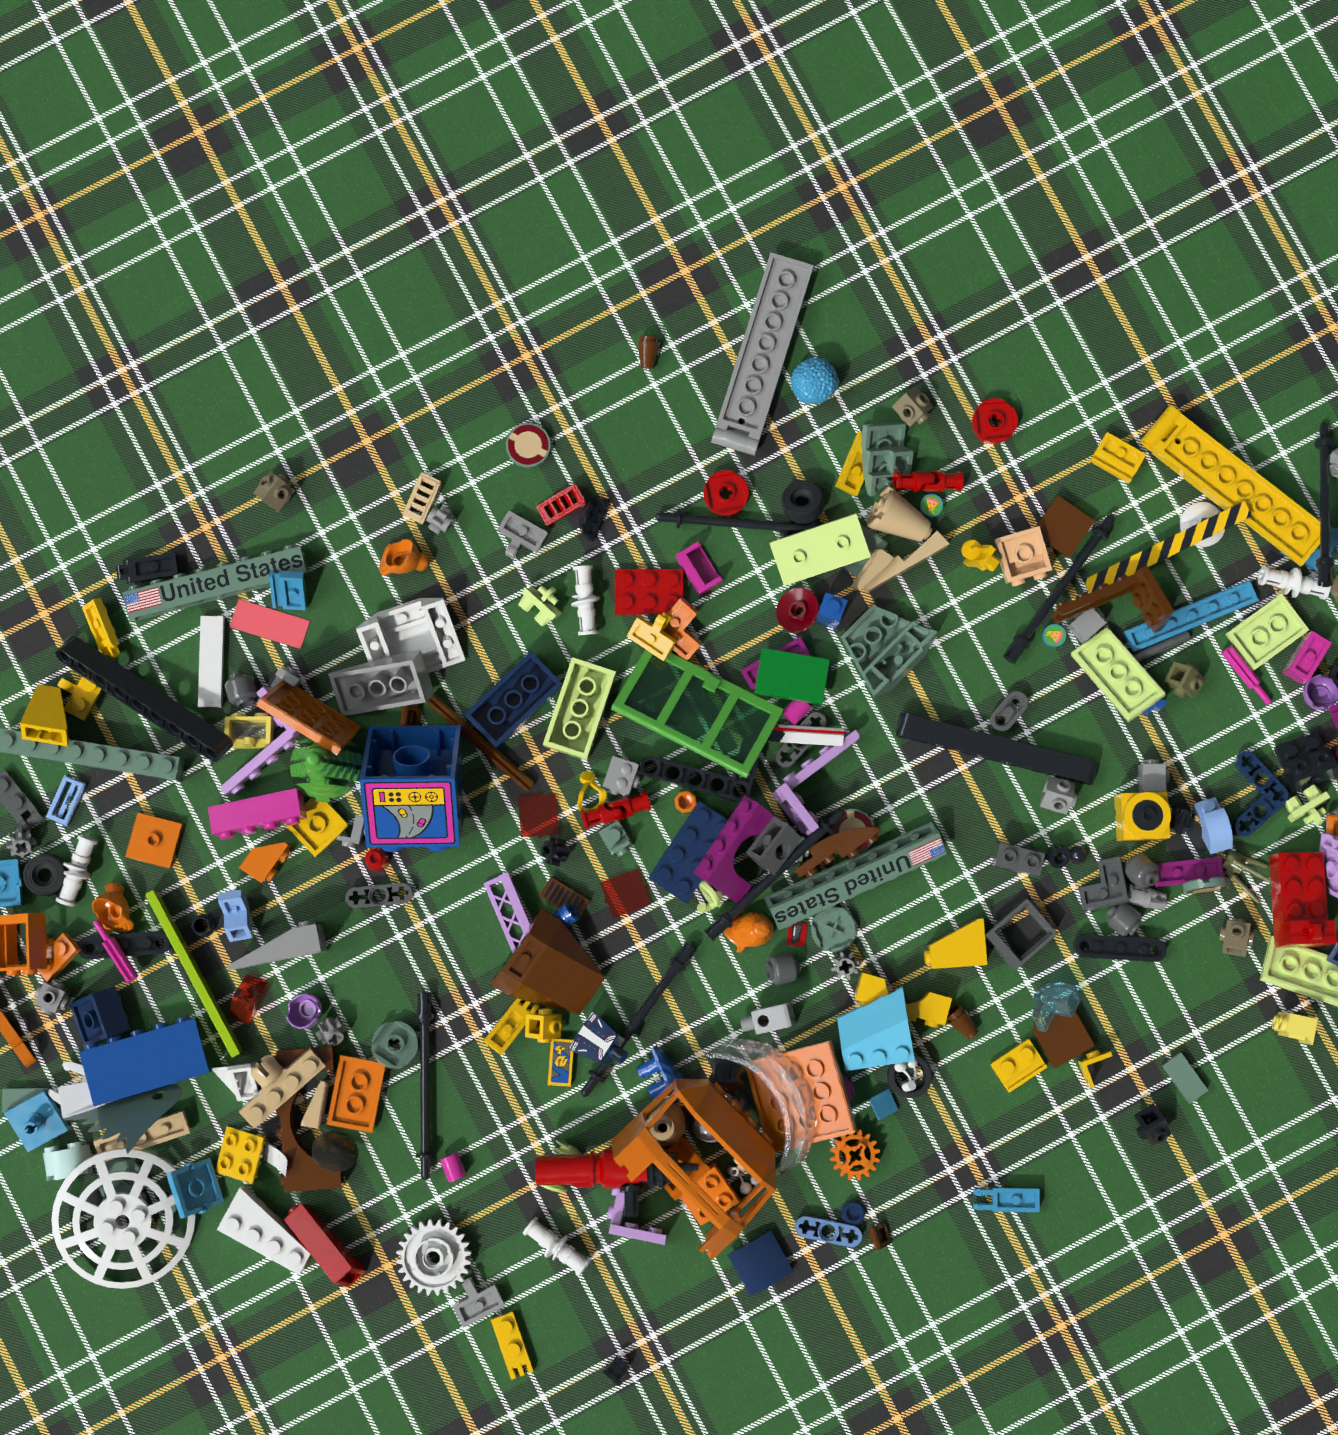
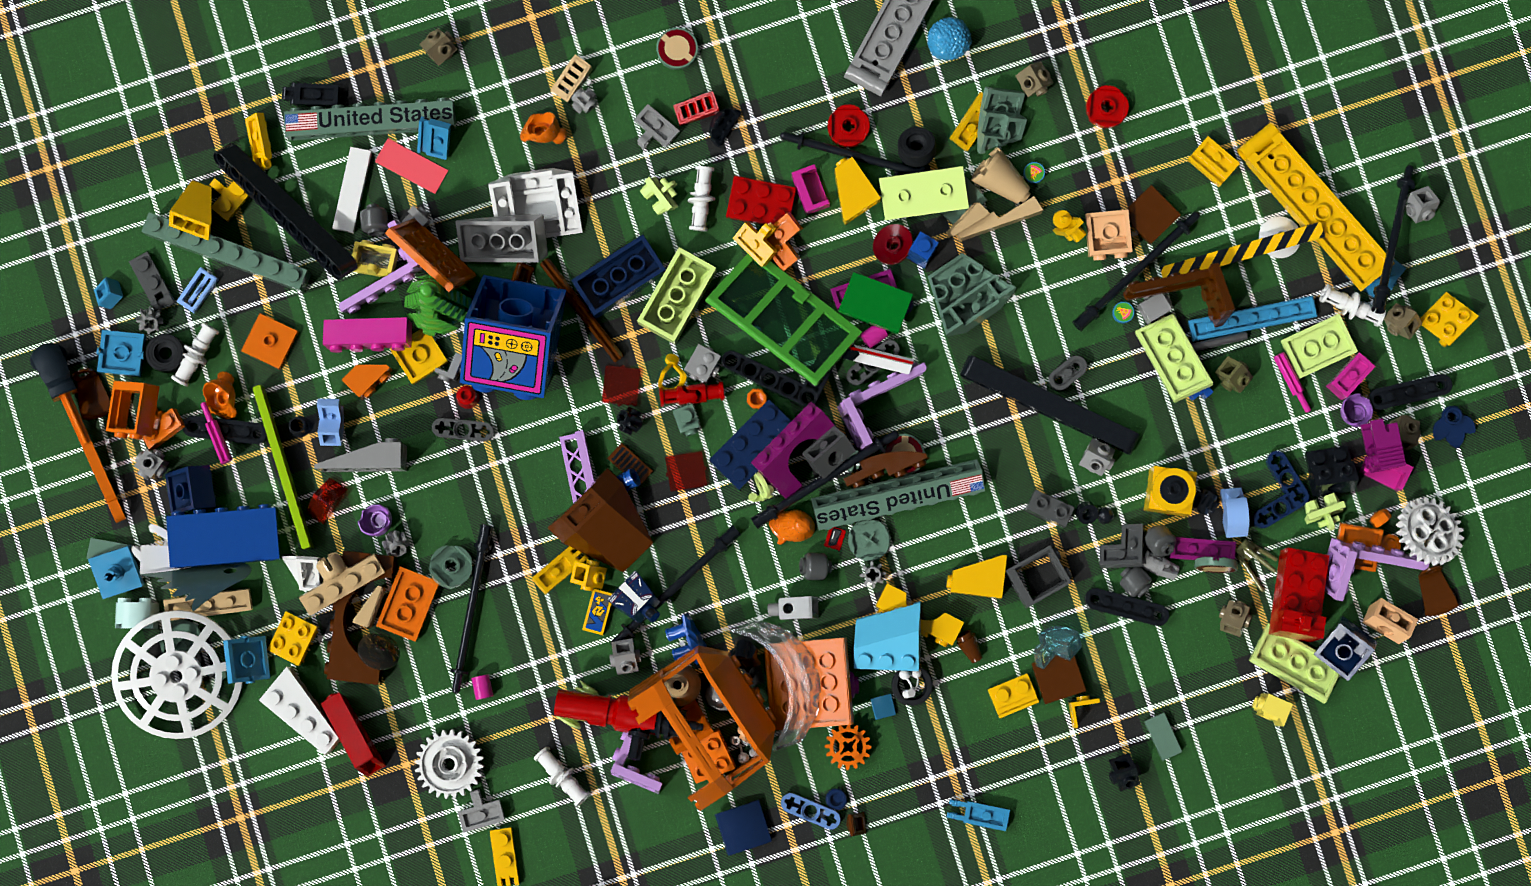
camera: 15 degrees right, 0 degrees up
(276, 1158) = (321, 647): white sticker -> none
(599, 1105) = (625, 656): none -> light grey brick
(745, 560) = (854, 190): none -> yellow slope
(928, 481) = (1035, 149): red piece -> none
(1152, 777) = (1188, 456): light grey brick -> none

